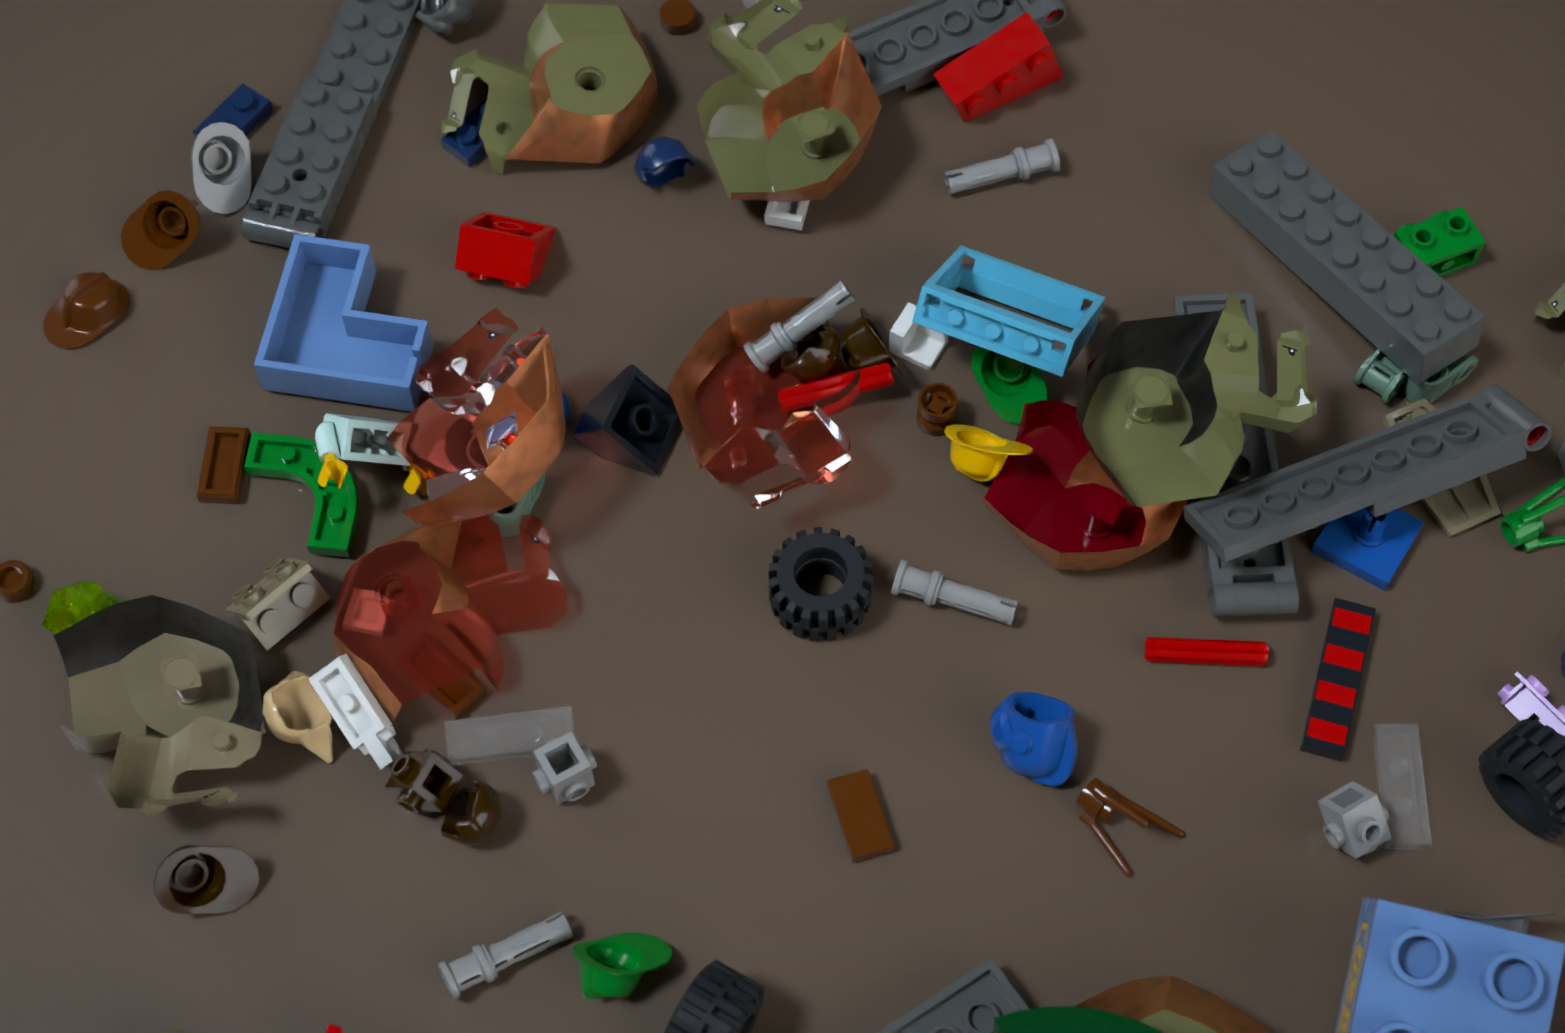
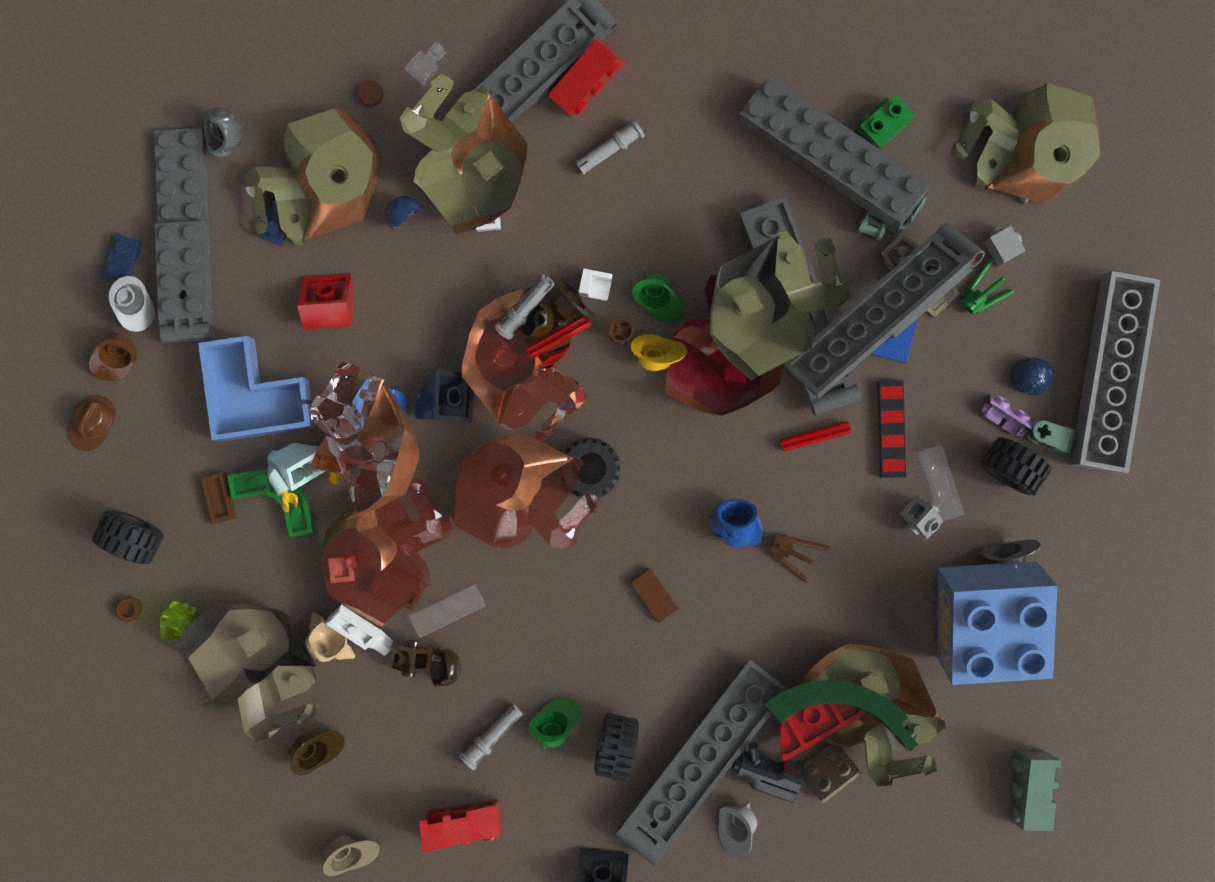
camera: 20 degrees left, 25 degrees up
(65, 461) = (127, 537): none -> black tyre
(278, 601) = (285, 575): dark tan bracket -> none
(564, 768) = (481, 634): light grey brick -> none
(683, 564) = (519, 486): none -> clear red piece
(936, 589) = (653, 447): light grey pin -> none
(1003, 330) = (645, 285): medium azure window -> none

